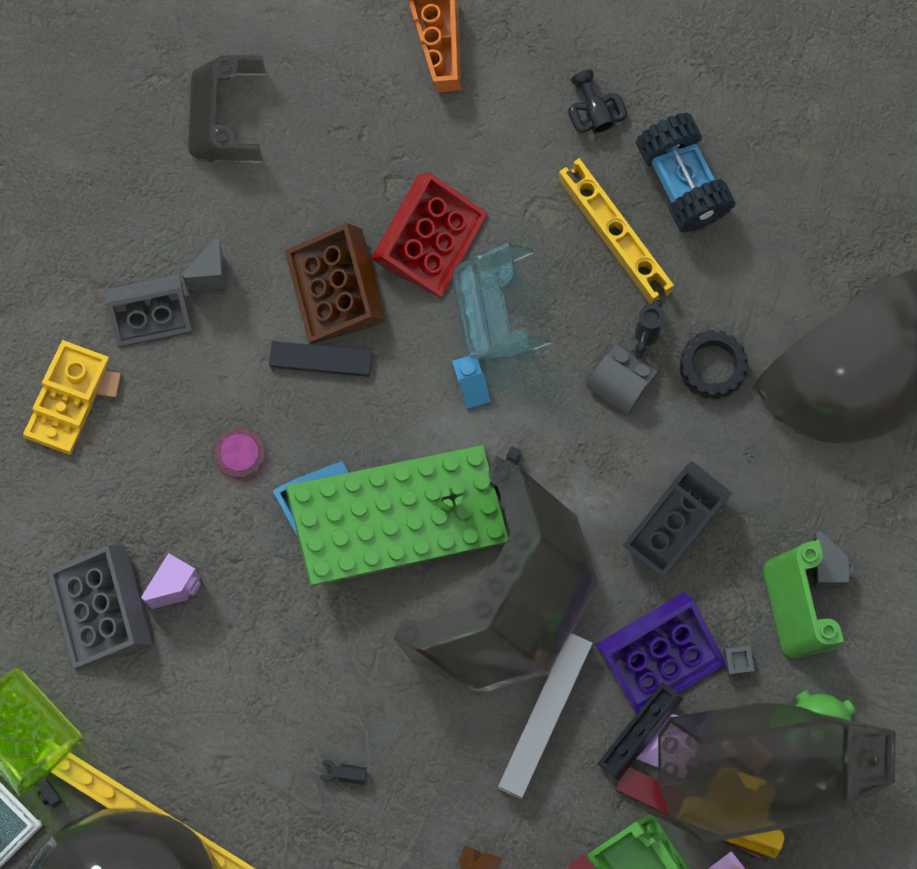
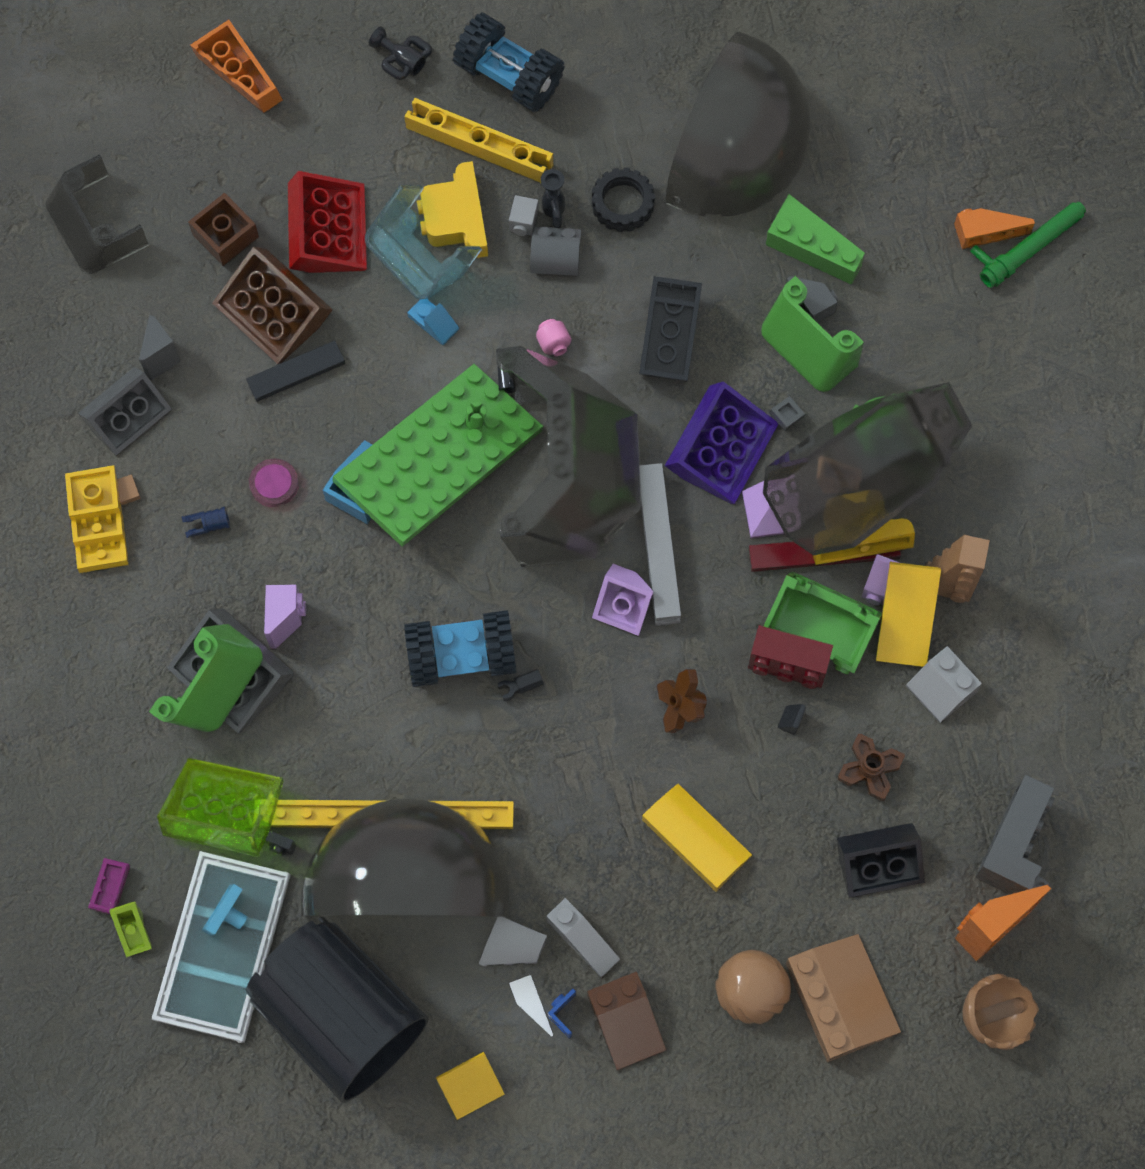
camera: 30 degrees left, 5 degrees down
(92, 607) = (217, 685): none -> bright green windscreen
(163, 457) = (211, 521): none -> dark blue hinge
(306, 711) = (460, 648): none -> plate
(333, 187) = (223, 229): none -> reddish brown brick
(481, 749) = (623, 600): none -> lavender slope
(551, 288) = (453, 211): none -> yellow brick
(568, 462) = (553, 337): none -> bright pink head
(612, 328) = (523, 215): none -> light grey brick
(640, 731) = (743, 511): black tile -> none
(864, 507) = (814, 242): none -> bright green wedge

